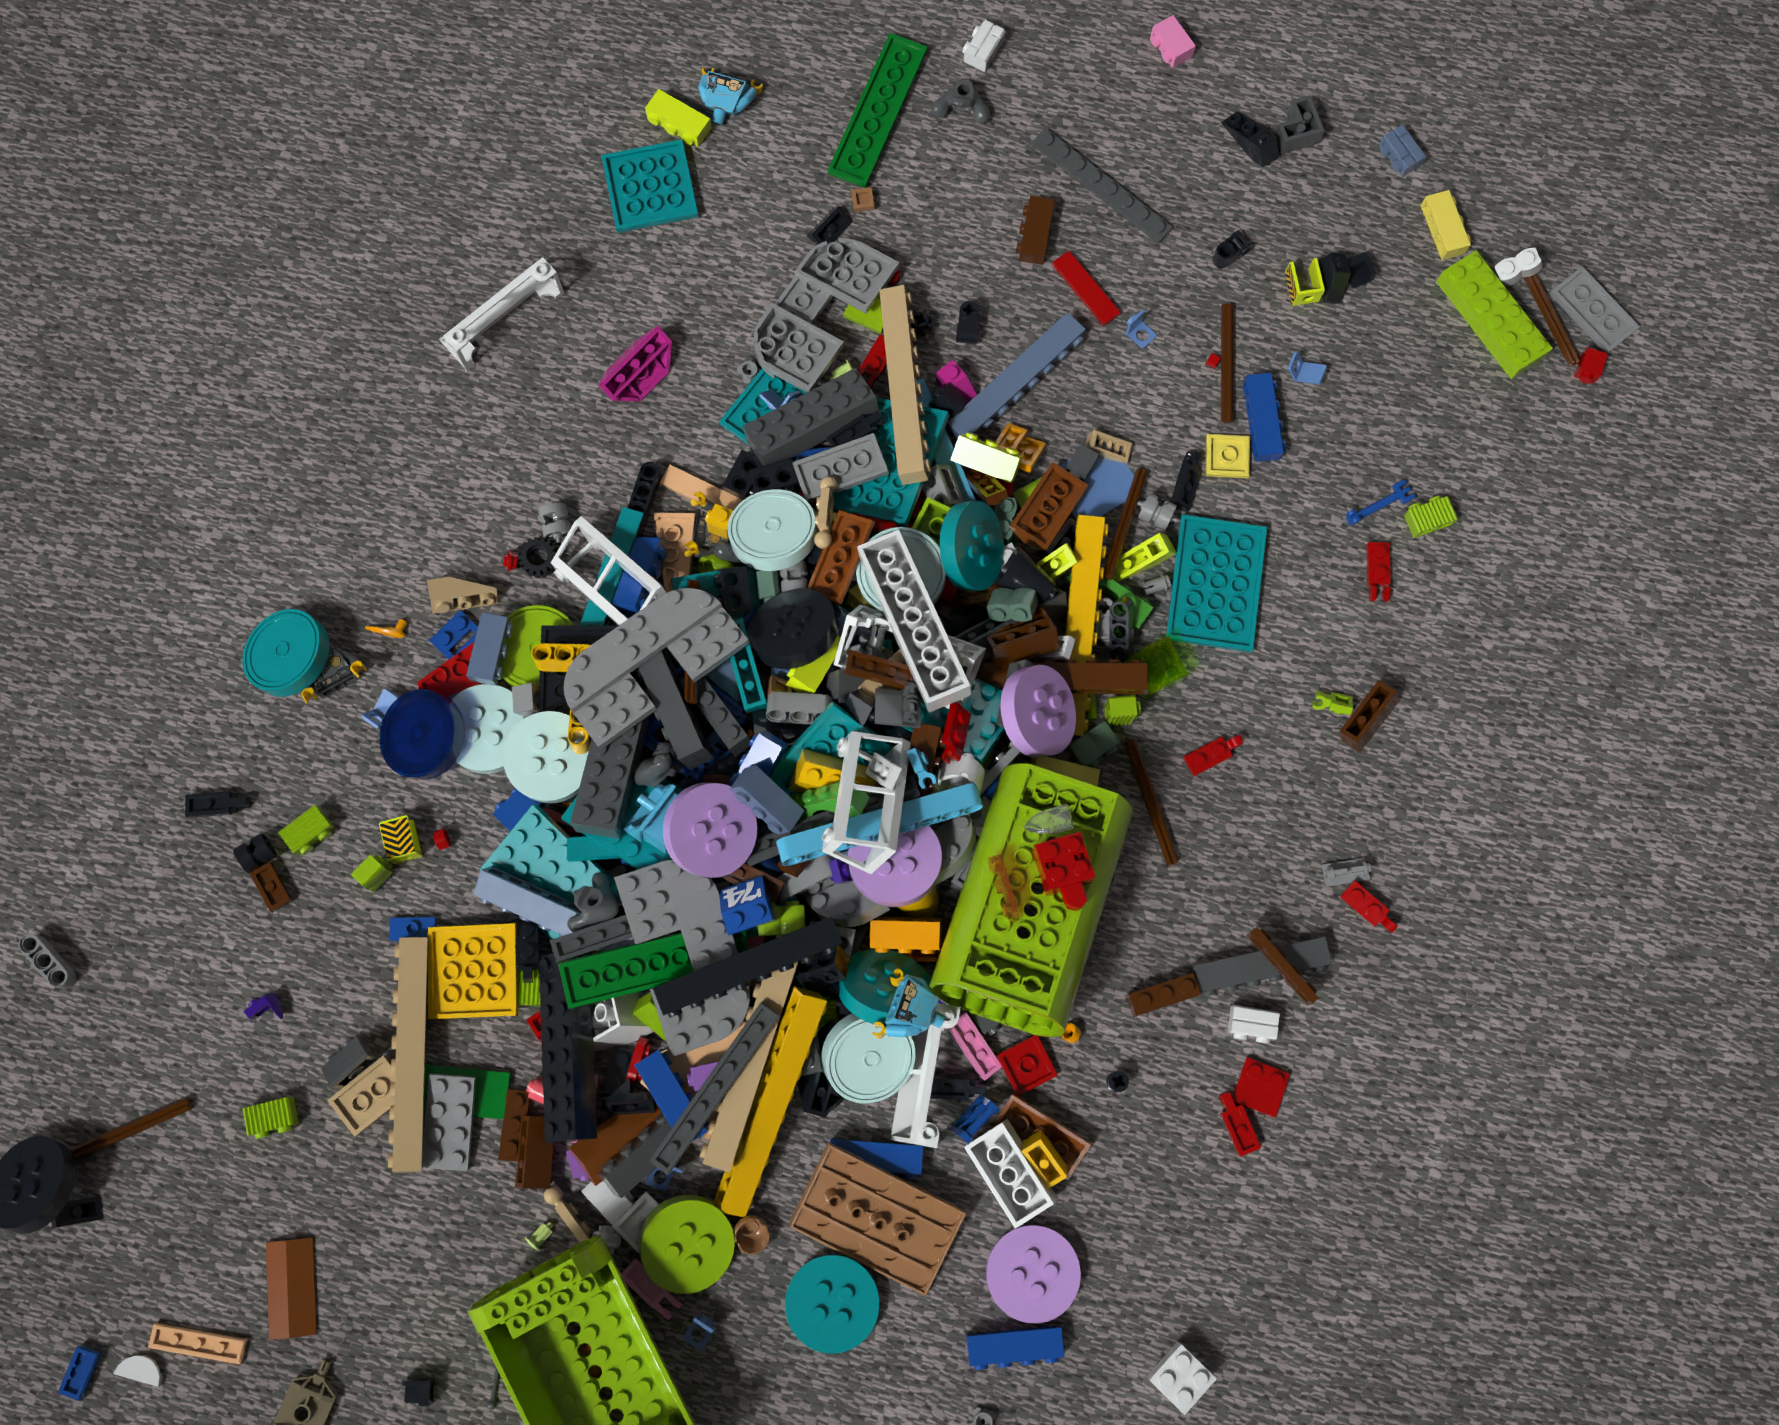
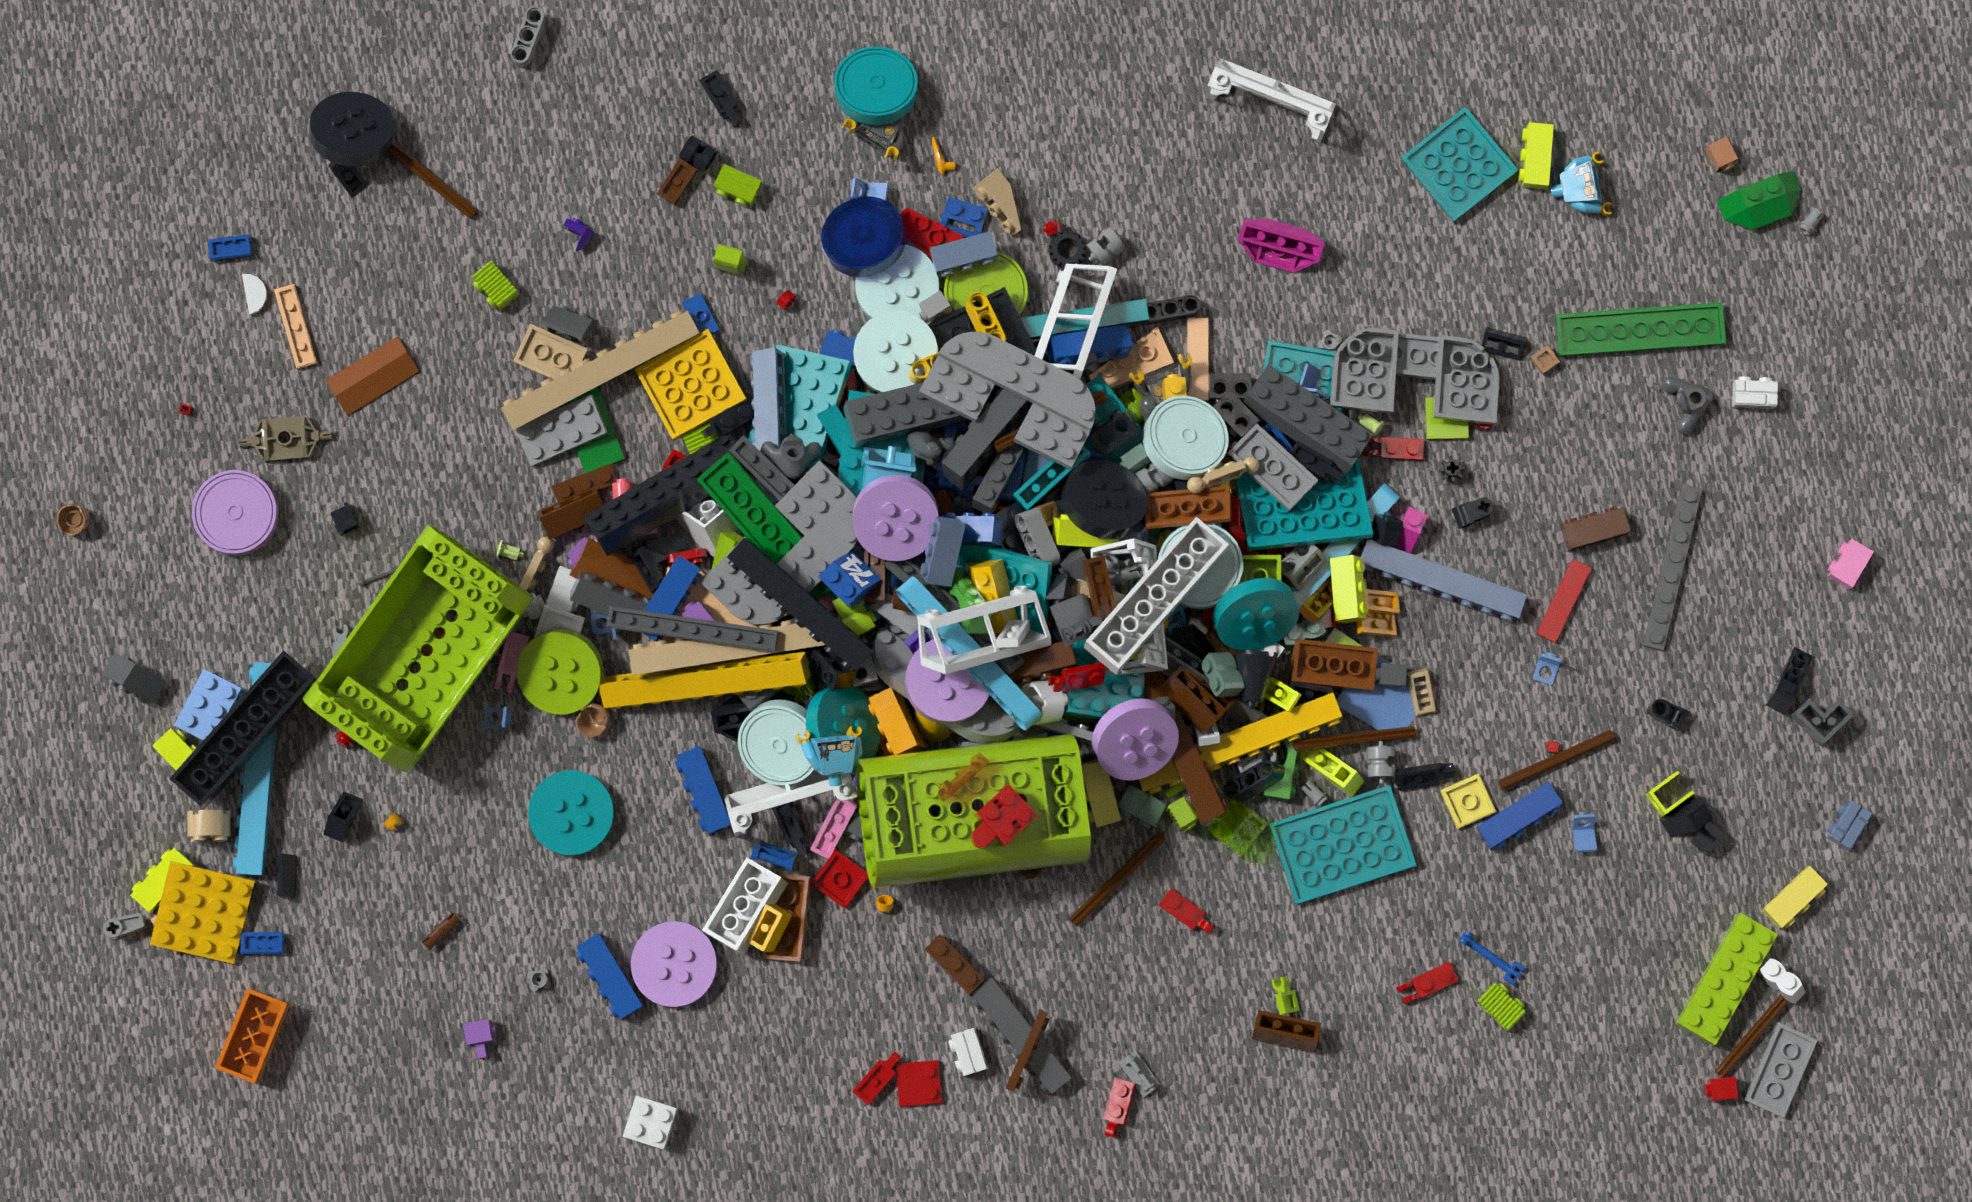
camera: 60 degrees right, 5 degrees up
(400, 839) = (768, 266): piece -> none
(877, 1218) = (658, 830): medium nougat piece -> none
(904, 386) = (1379, 483): tan brick -> none
(919, 762) = (1035, 660): medium azure plate -> none
(1051, 821) = (1037, 789): clear plate -> none
(1124, 1079) = (858, 964): black bush -> none

